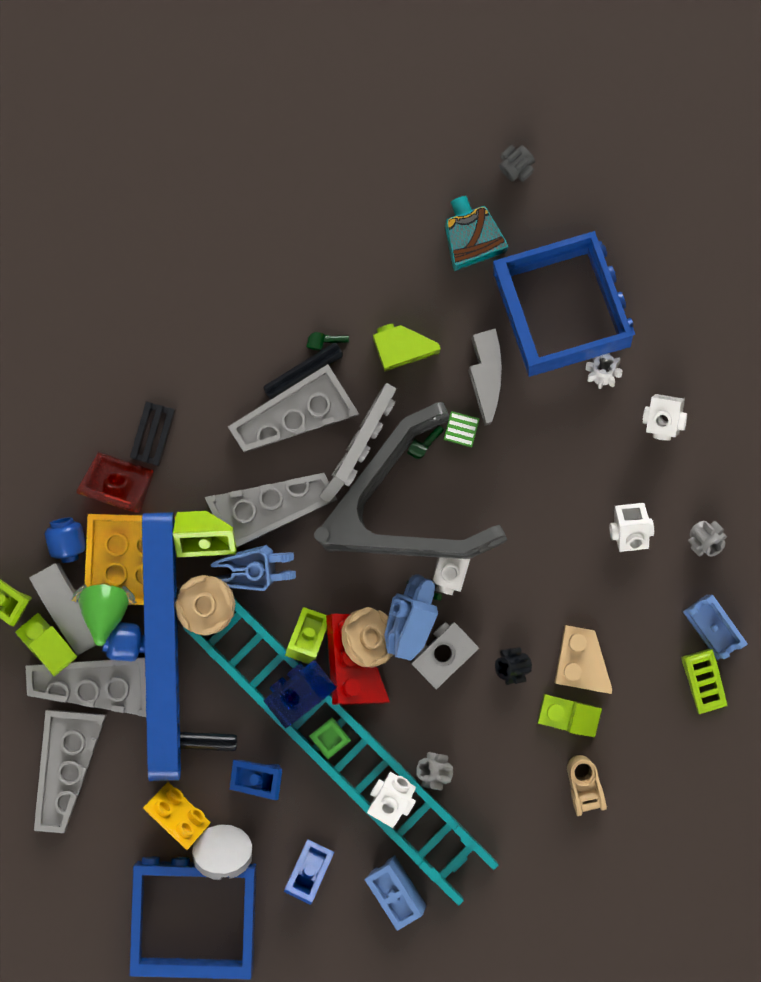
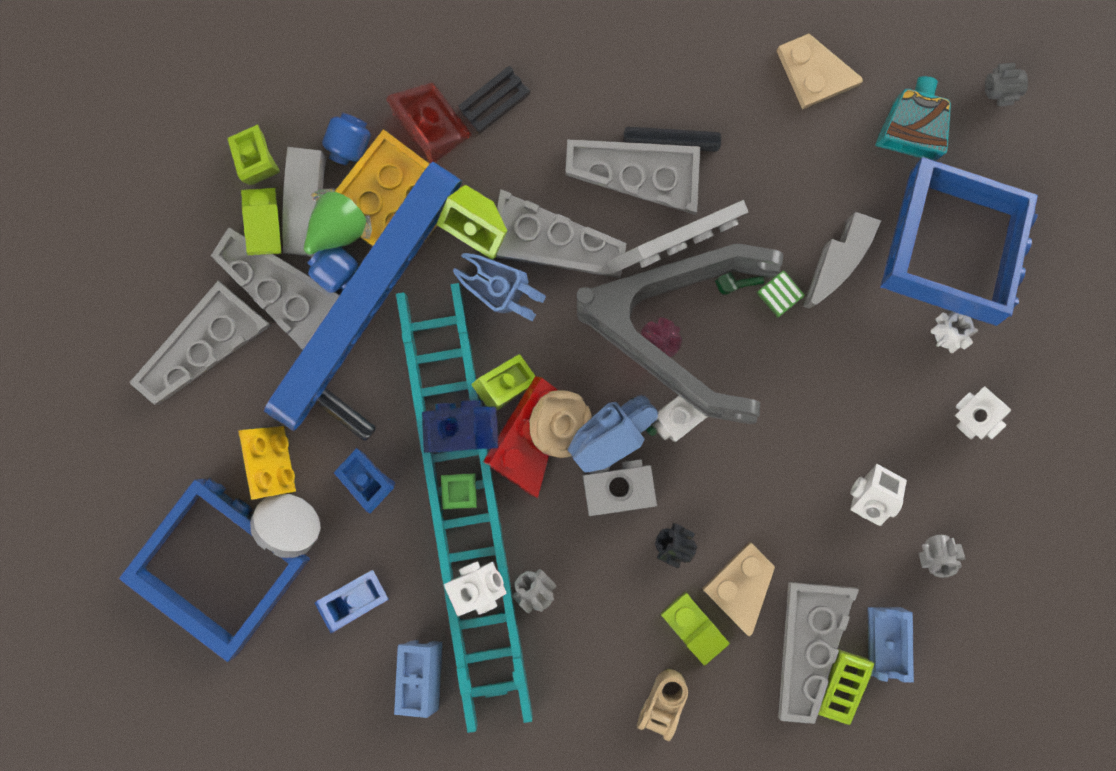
camera: 40 degrees right, 0 degrees up
(205, 605) = (431, 286): tan tile -> none
(317, 339) = (706, 118): dark green hand -> none
(372, 247) = (815, 71): none -> tan wing
(398, 522) = (663, 336): none -> clear pink gear
(402, 346) = (781, 179): lime slope -> none
(657, 663) = (811, 639): none -> light grey wing

